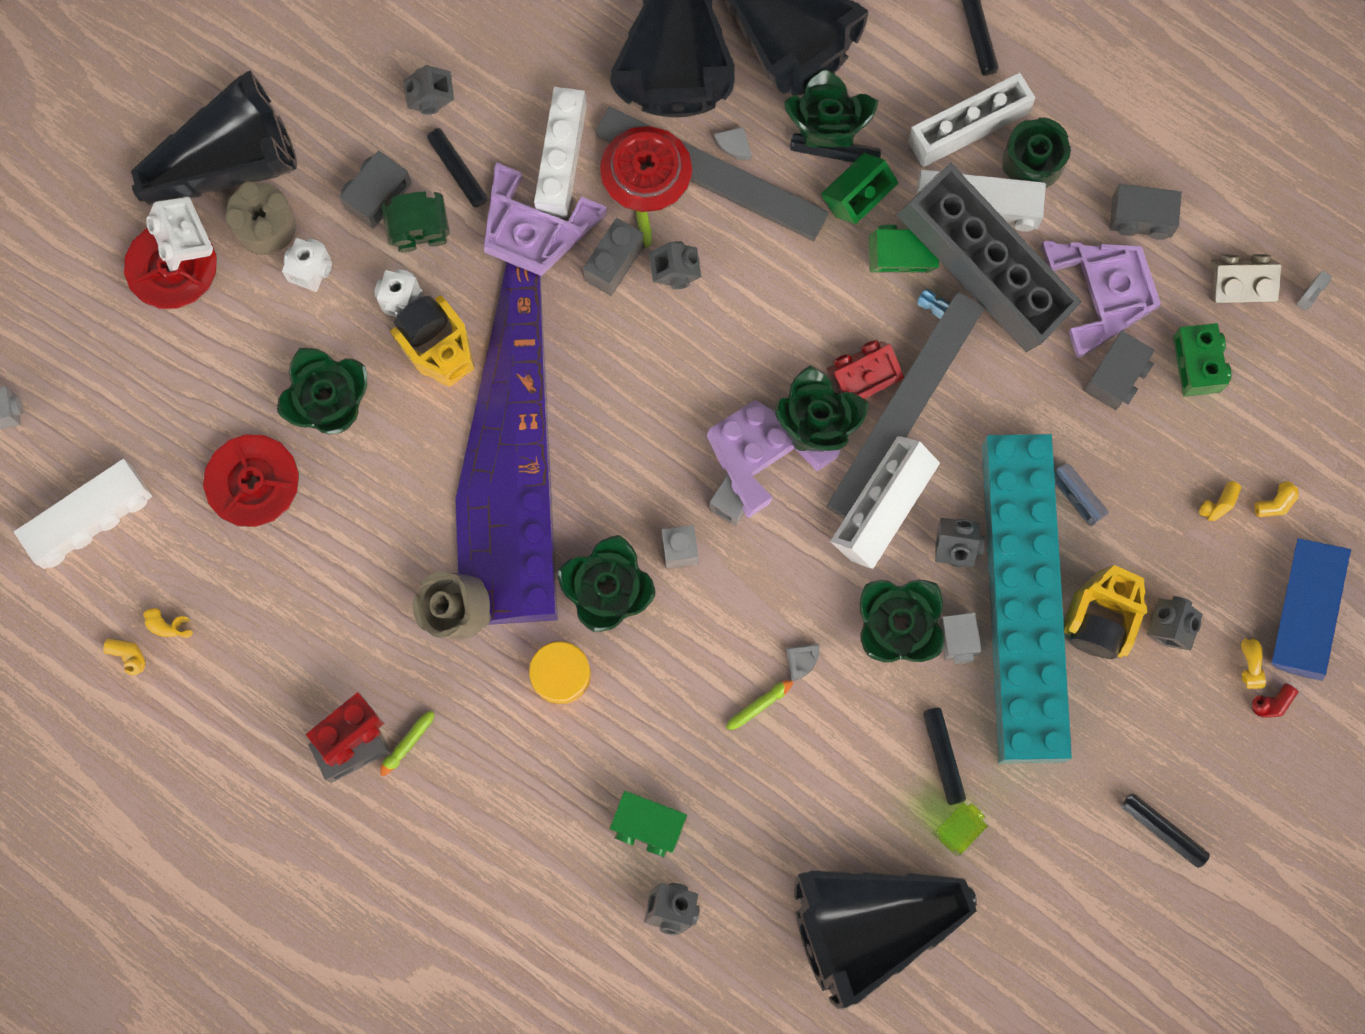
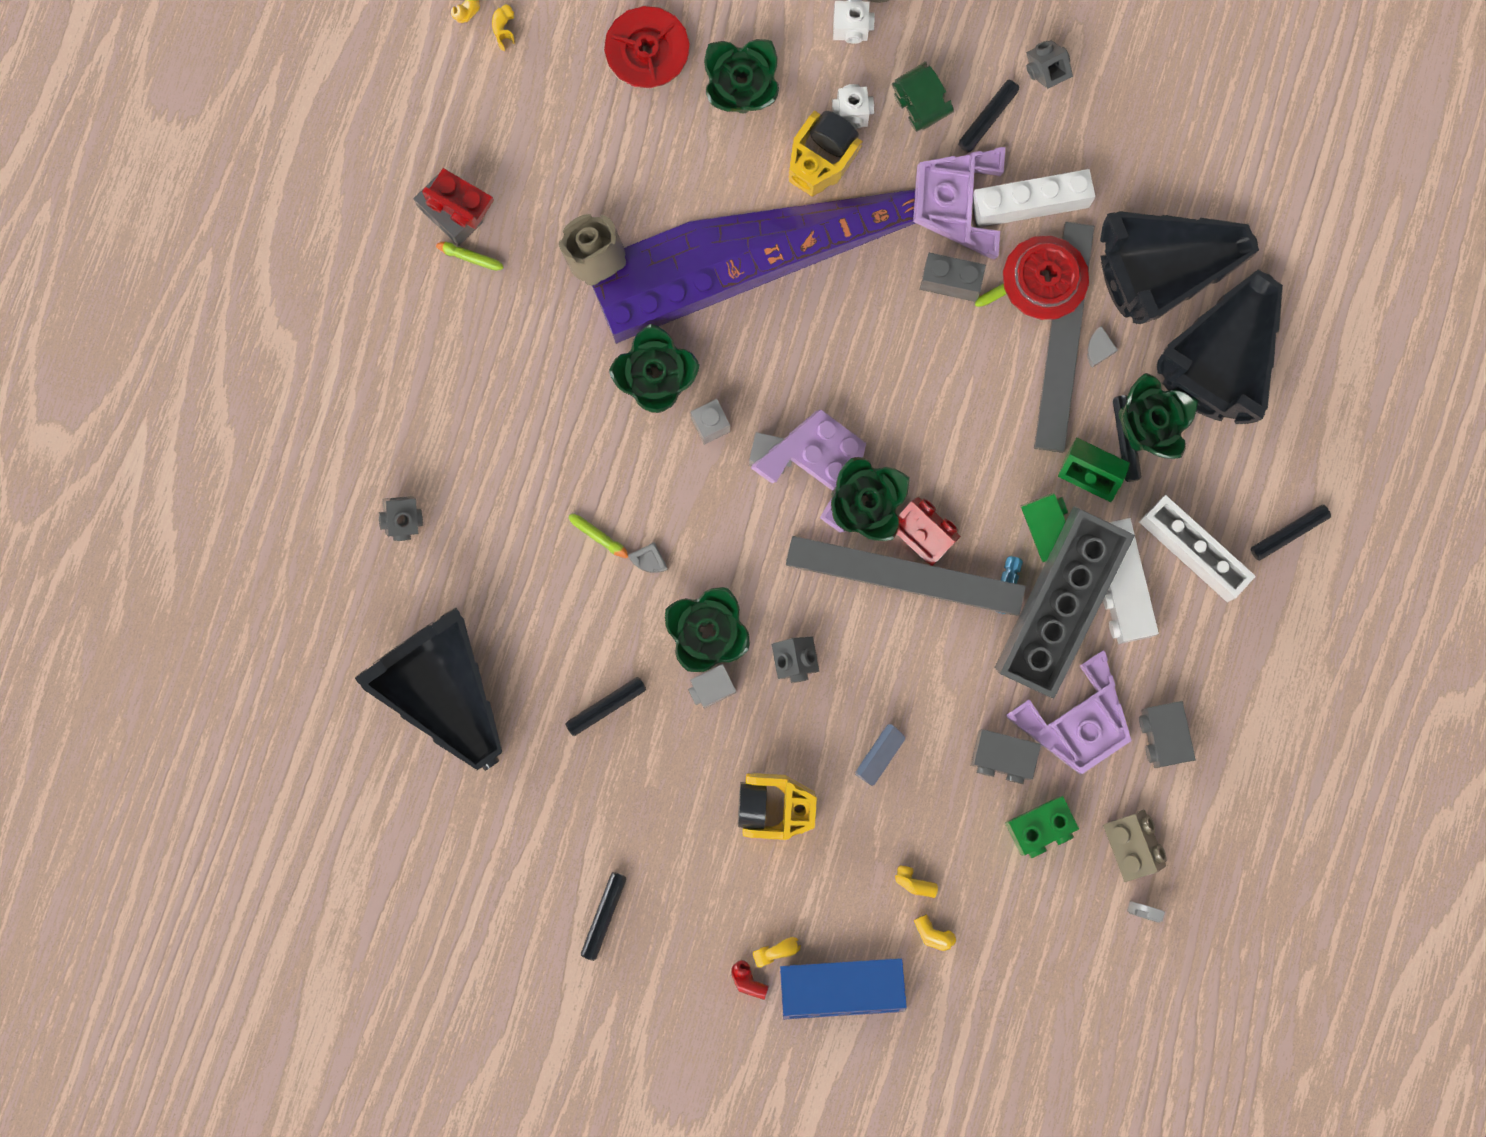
camera: 70 degrees right, 5 degrees up
(375, 184) = (943, 51): dark grey brick -> none
(560, 672) = (569, 359): yellow head -> none
(648, 823) = (464, 474): green brick -> none
(675, 265) = (963, 332): dark grey brick -> none
(885, 502) = (810, 583): white brick -> none
(961, 828) = (546, 738): clear neon green brick -> none
(1026, 600) = (766, 732): teal brick -> none
(1040, 137) = (1199, 608): dark green brick -> none
(1175, 623) = (787, 870): dark grey brick -> none

